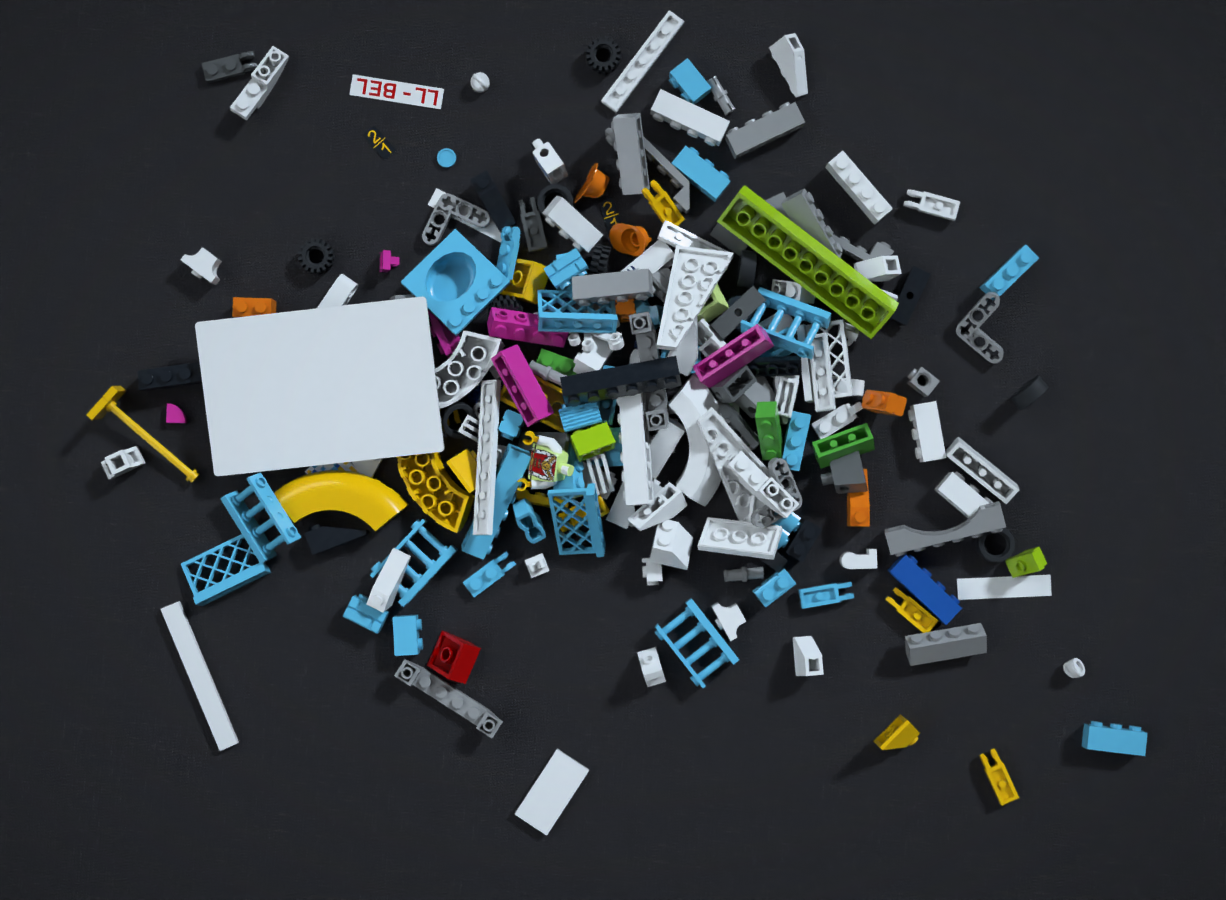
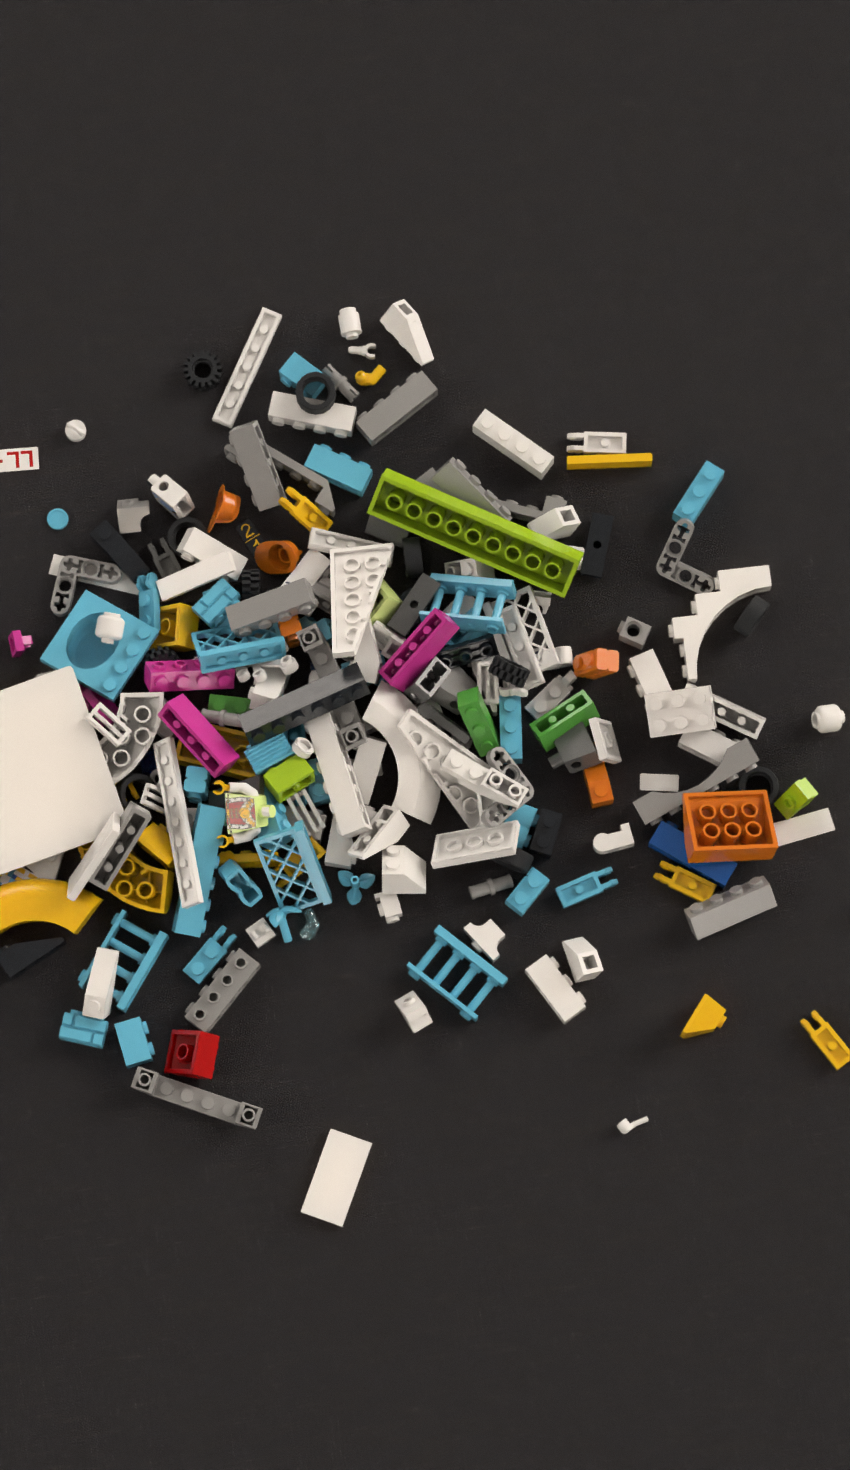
camera: 15 degrees left, 10 degrees down
(406, 471) = (93, 857): none -> white tile
(430, 467) = (132, 825): none -> light grey brick
(451, 351) = (102, 730): none -> white tile
(467, 269) = (109, 627): none -> white head
(491, 610) = (222, 991): none -> light grey brick
(509, 170) = (130, 514): none -> light grey brick
(554, 240) = (196, 575): none -> white tile
(554, 560) = (278, 917): none -> medium azure plant
(581, 571) = (312, 925): none -> clear light blue arm
(610, 418) = (302, 747): none -> white tile
(623, 537) = (348, 879): none -> medium azure plant
(699, 85) = (313, 377): none -> black tyre
(742, 43) = (349, 323): none -> white brick
(747, 71) = (363, 350): none -> white piece
(748, 98) = (367, 379): none -> yellow arm
(778, 676) = (556, 988): none -> white brick
(803, 408) = (510, 690): none -> white piece
(807, 394) = (509, 671): none -> black tyre
(808, 809) = (624, 1126): none -> white hand
(874, 472) = (605, 740): none -> white tile
(910, 517) = (659, 782): none -> white sticker
(939, 223) = (609, 461): none -> yellow tile
(948, 465) = (680, 711): none -> white brick
(963, 576) = (728, 826): none -> orange slope
(990, 374) = (731, 587): none -> white arch
(1071, 498) = (828, 718): none -> white head

